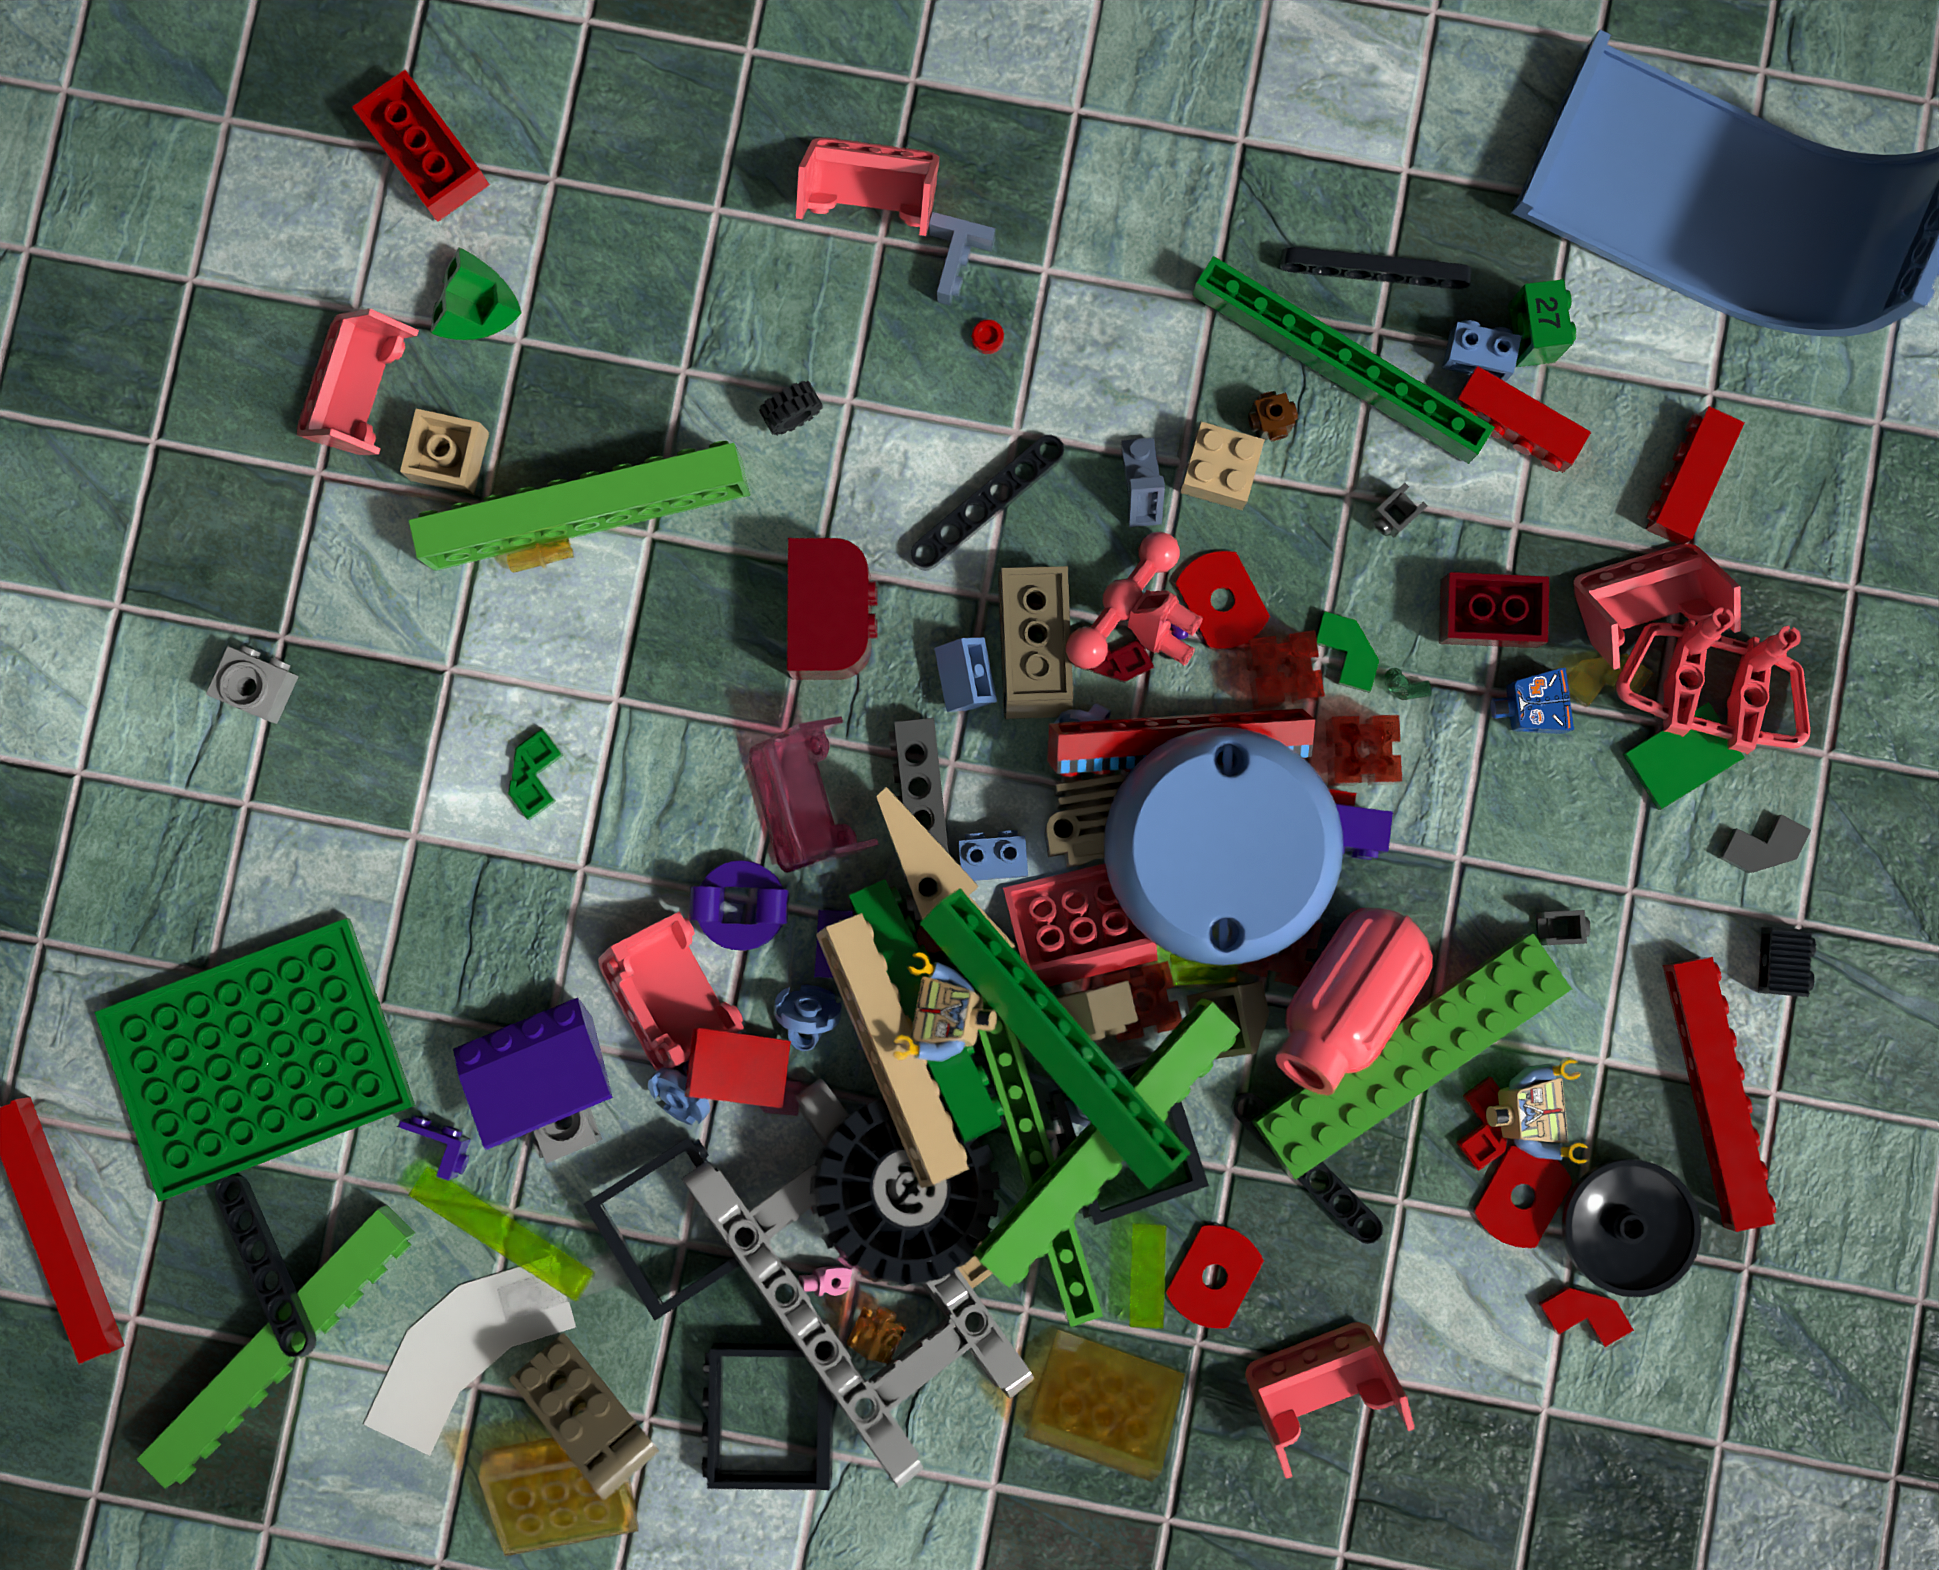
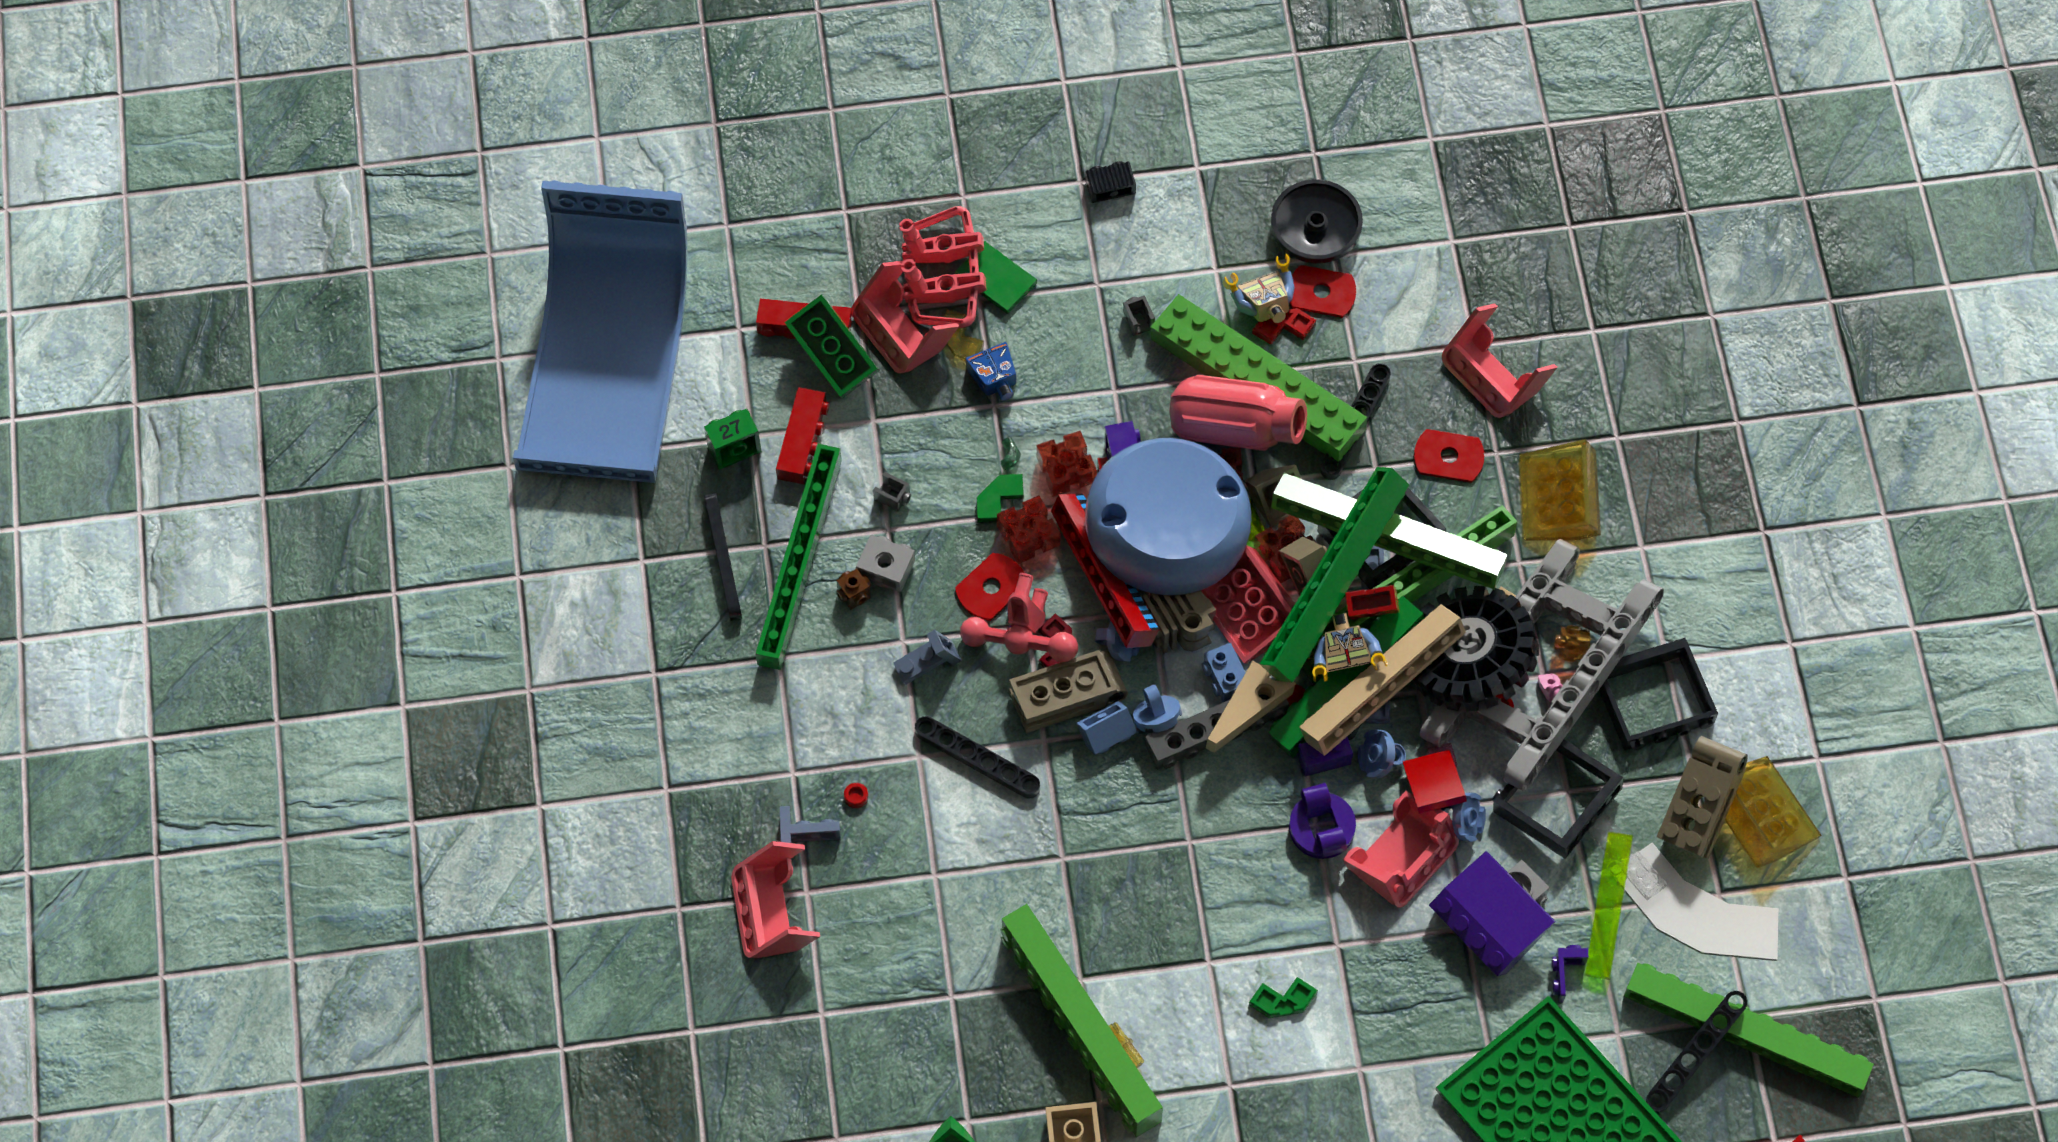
camera: 110 degrees left, 20 degrees down
(790, 408) = (958, 902): black tyre -> none
(796, 799) = (1240, 812): clear pink windscreen -> none
(829, 609) = (1095, 828): dark red brick -> none
(963, 746) = (1156, 711): none -> medium blue tile
(998, 1073) = (1372, 602): none -> red brick
(1147, 1275) = (1465, 493): clear neon green plate -> none
(1222, 466) = (899, 610): tan brick -> none
(1296, 488) = (880, 551): none -> light grey brick
(1476, 346) = (761, 473): medium blue brick -> none
(1494, 610) = (941, 412): dark red brick -> none
(1572, 1306) = (1378, 241): red tile -> none
(1638, 490) = (832, 346): none -> green brick
(1719, 1094) = (1209, 197): red brick -> none
(1780, 846) = (1036, 206): dark grey tile -> none

